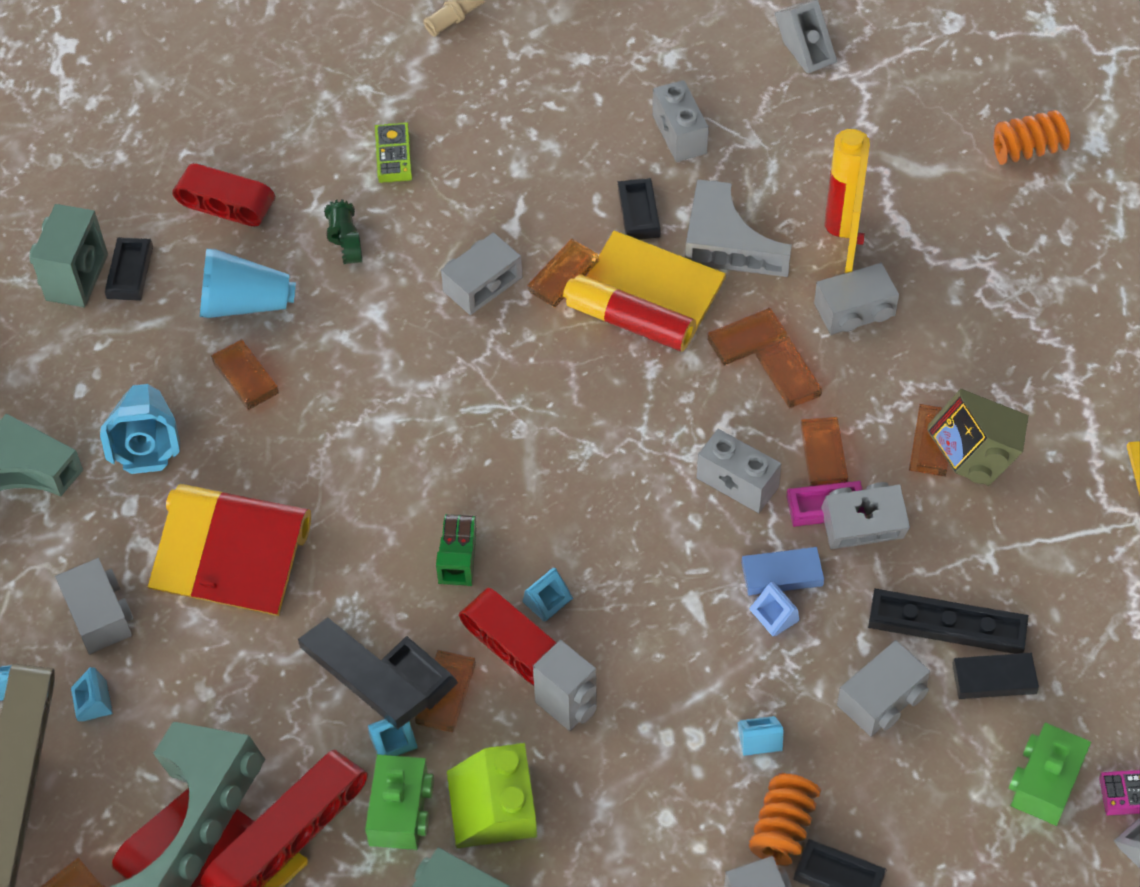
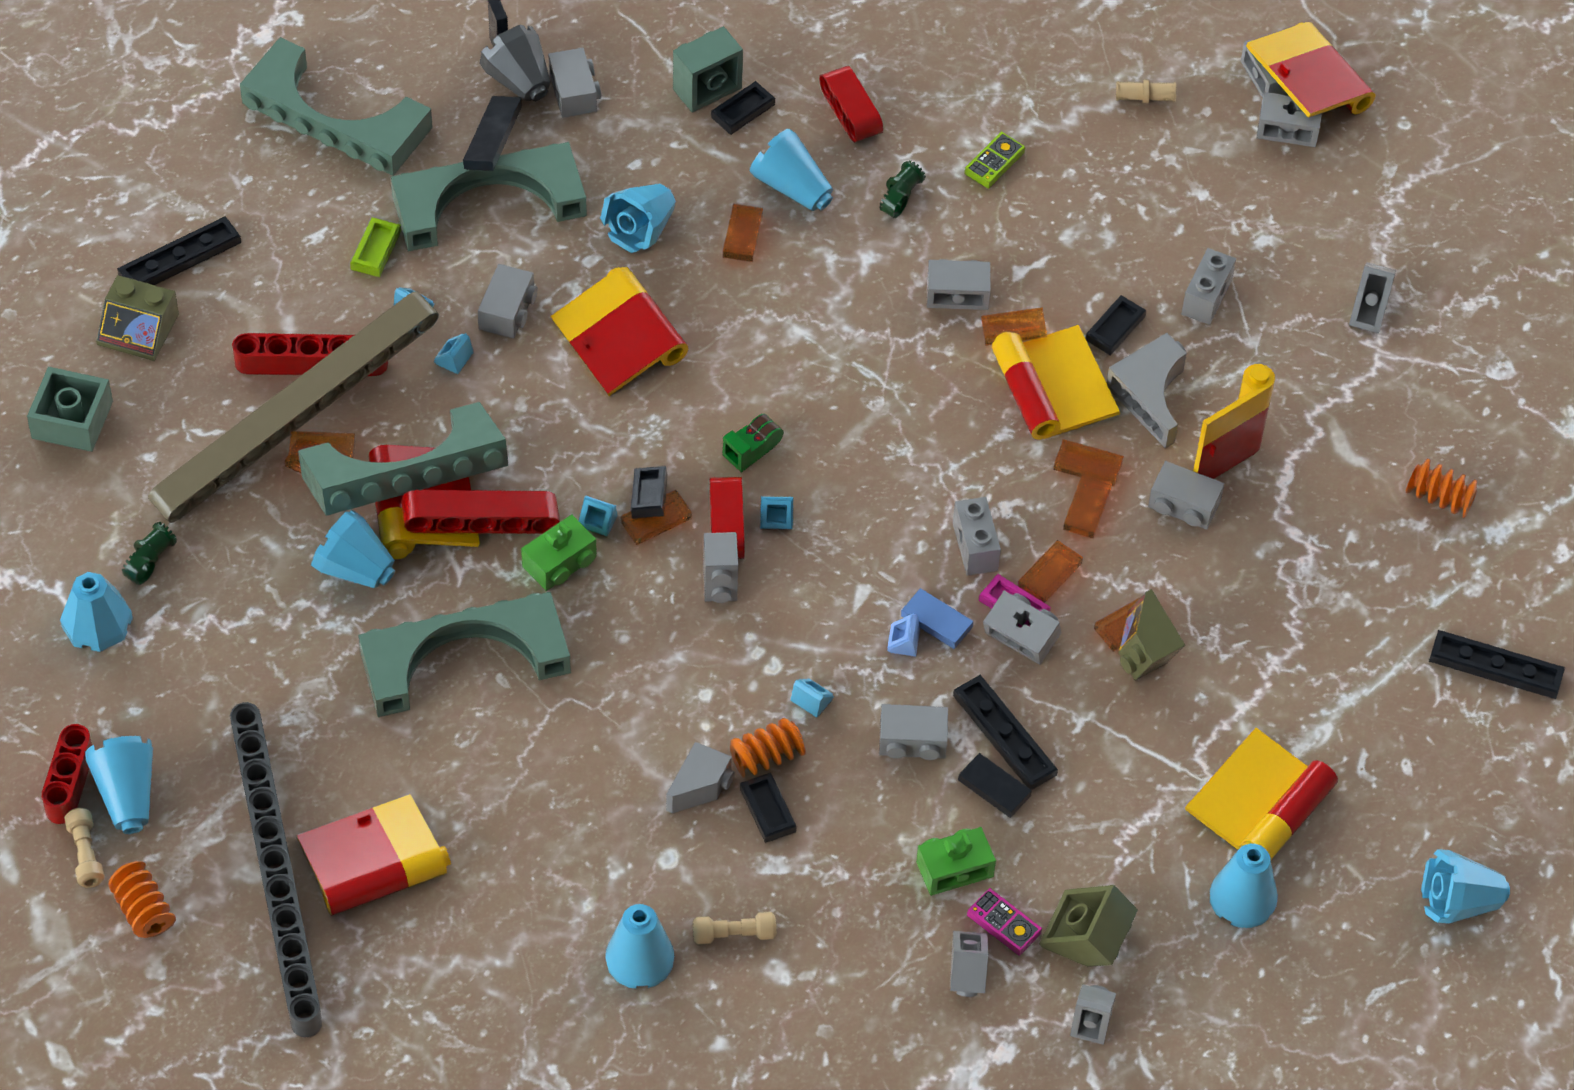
camera: 40 degrees right, 0 degrees up
(363, 673) = (615, 464): black tile -> none
(492, 797) = (617, 597): lime slope -> none

